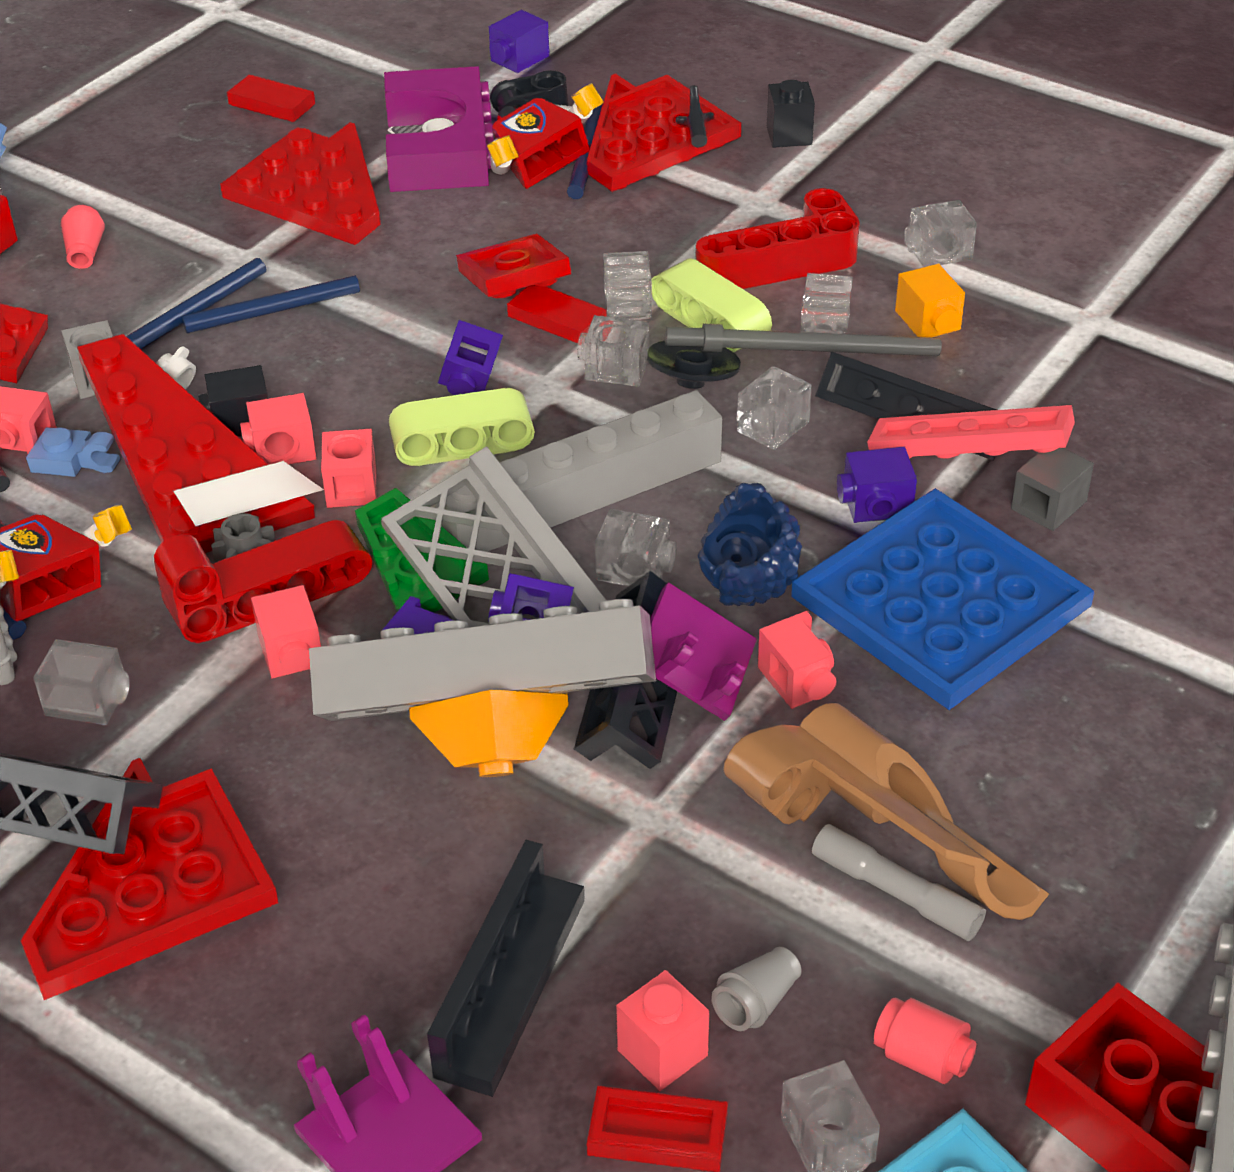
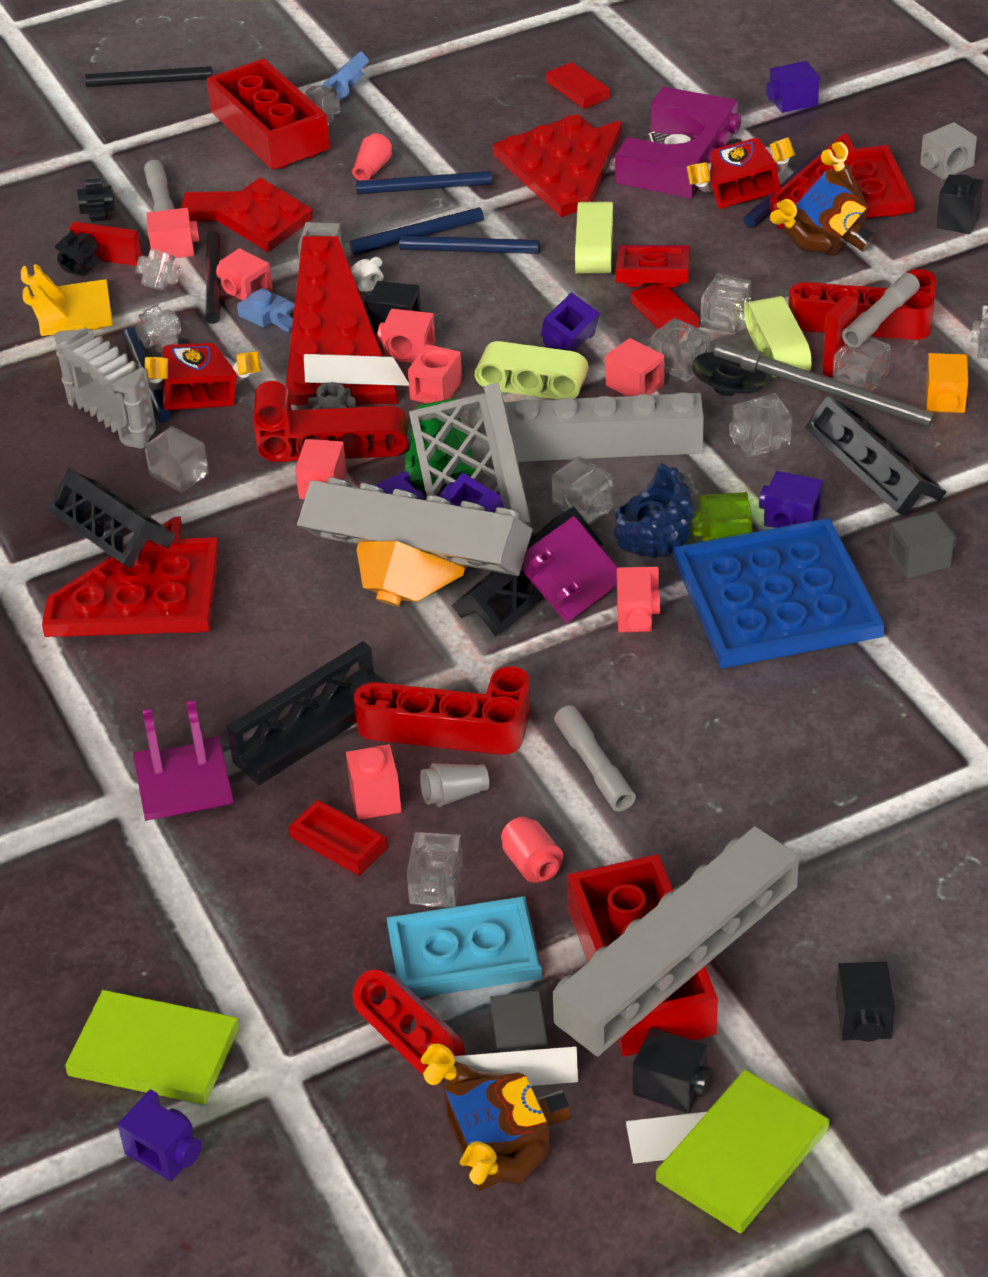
camera: 30 degrees right, 0 degrees up
(162, 249) = (424, 182): none -> dark blue bar
(420, 255) = (594, 238): none -> yellowish green beam
(546, 85) = (769, 130): black piece -> none
(581, 389) = (634, 369): none -> coral brick
(671, 153) = (829, 211): none -> torso
(685, 902) = (447, 717): none -> red beam
(696, 119) = (876, 187): black bar -> none
(731, 65) = (948, 150): none -> light grey brick
(791, 281) = (837, 319): none -> red tile
(817, 256) = (869, 321): none -> light grey piece
(826, 526) = (722, 516): none -> clear neon green brick
(835, 750) = (621, 689): medium nougat panel -> none
(976, 432) = (885, 486): coral plate -> none

